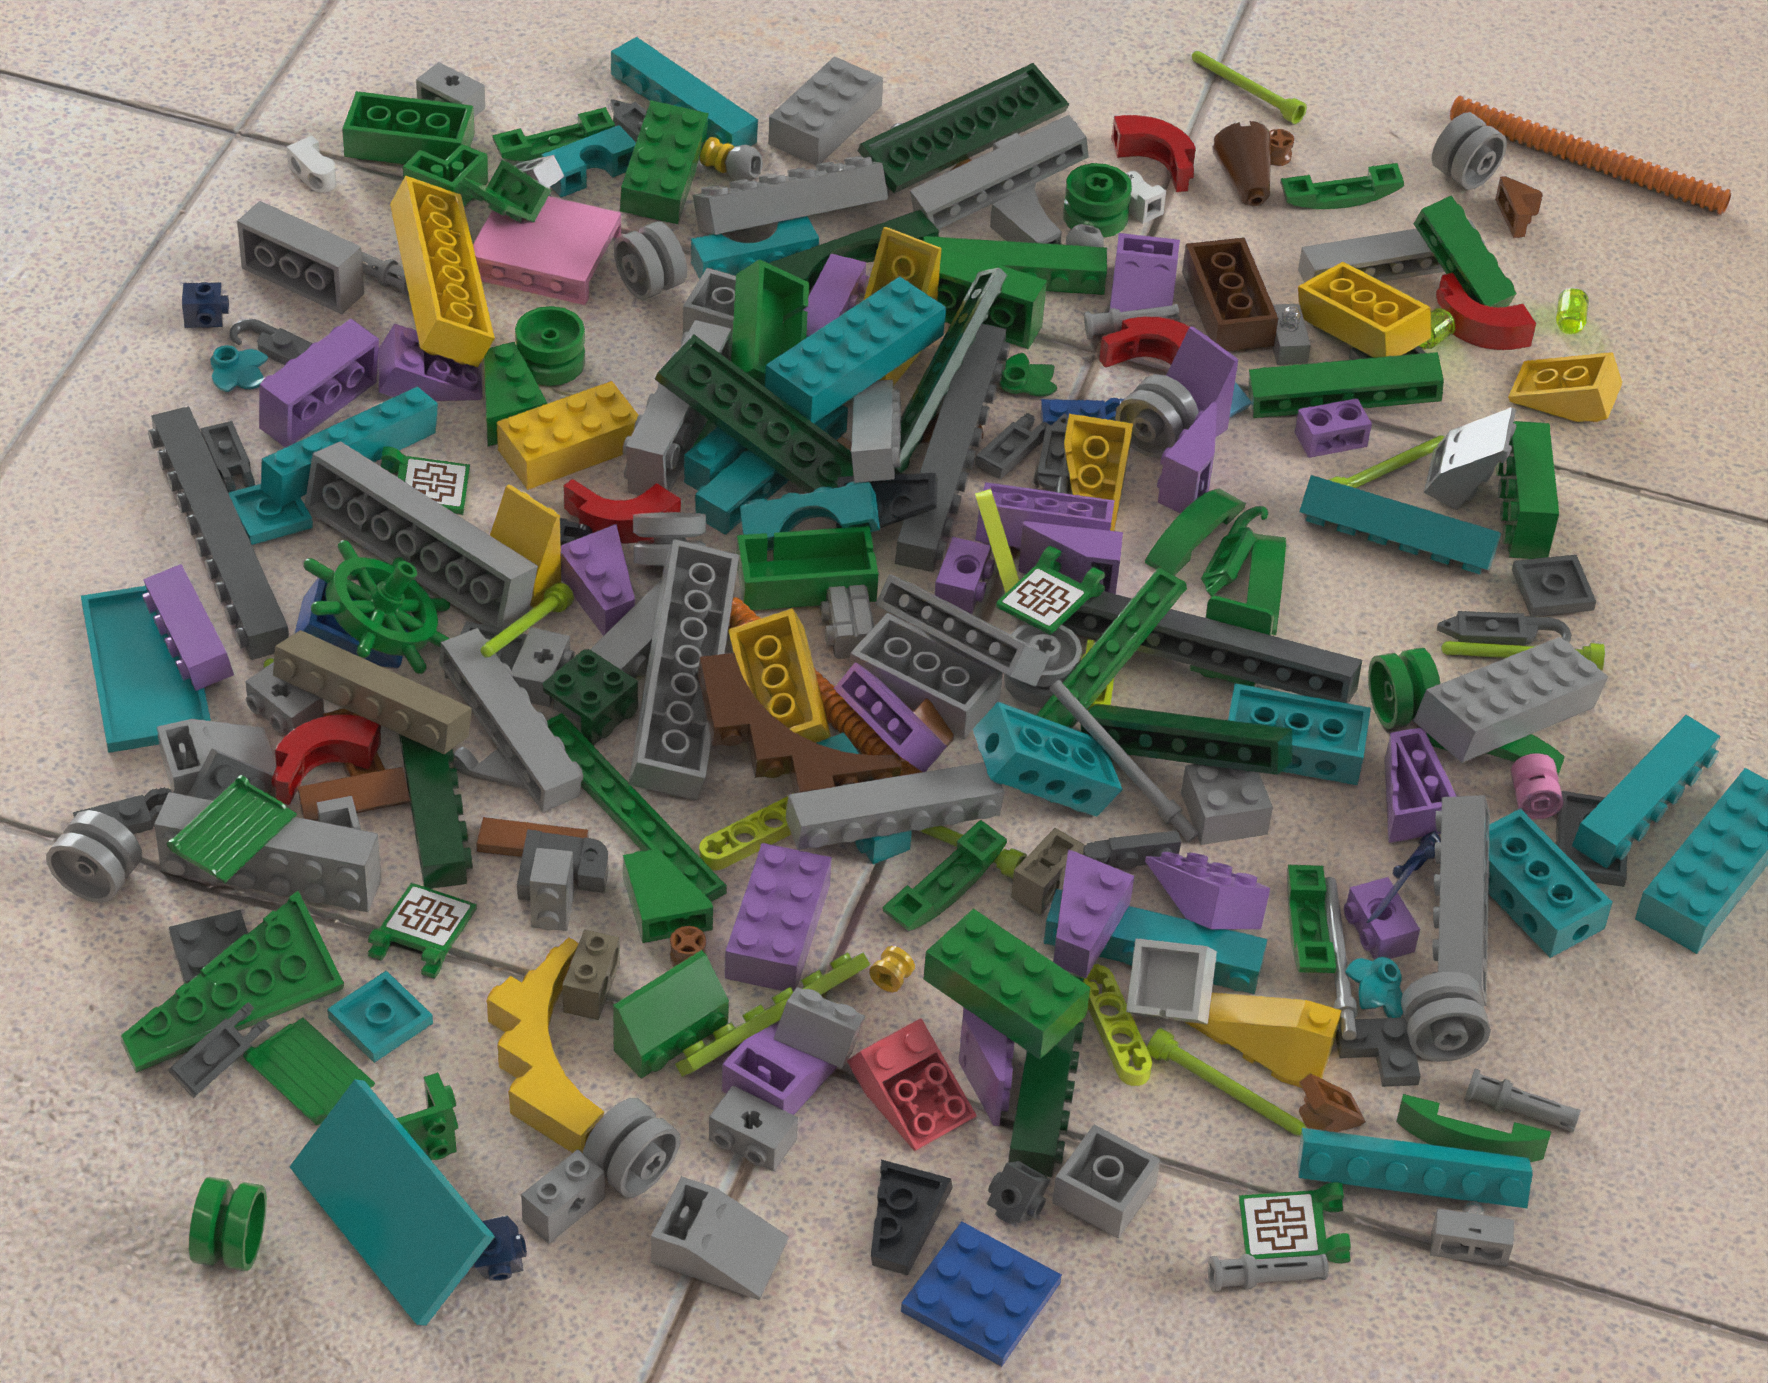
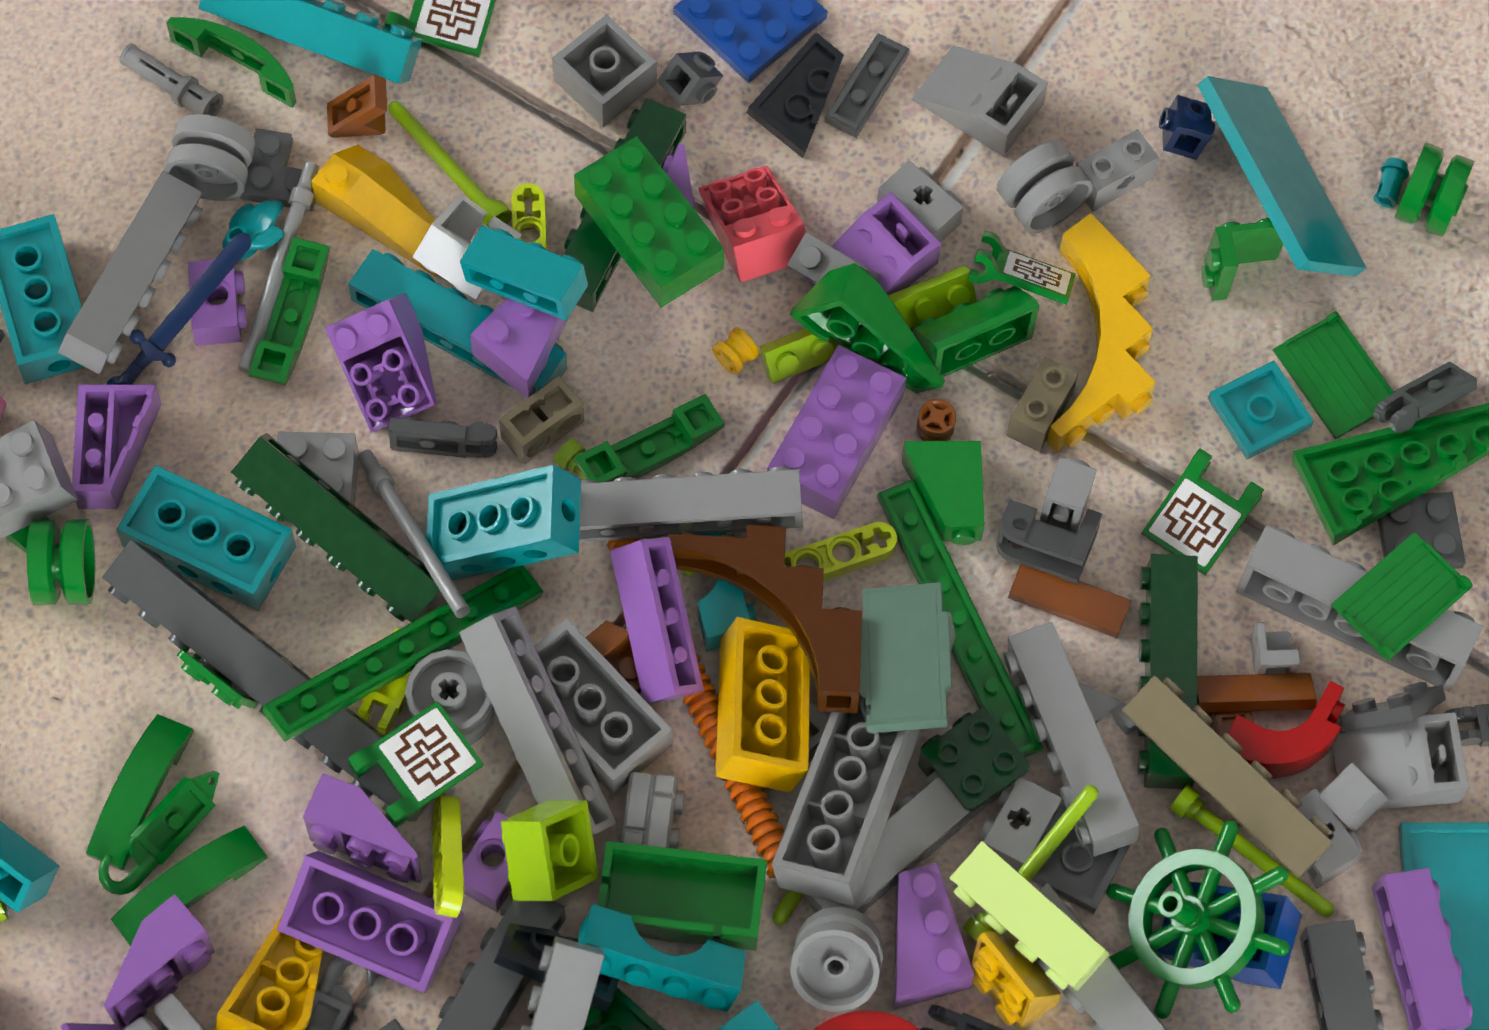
camera: 165 degrees left, 20 degrees up
(254, 712) = (1353, 797): none -> light grey panel
(270, 1258) = (1392, 177): none -> teal pin
(521, 548) = (1029, 916): none -> yellowish green brick
(631, 1068) = (1021, 271): none -> flag
(668, 708) = (905, 658): none -> sand green piece
(779, 961) = (861, 316): none -> green wedge
(838, 1246) = (867, 85): none -> dark grey tile
(920, 550) = (549, 850): none -> lime brick
(1104, 908) = (524, 272): none -> teal brick

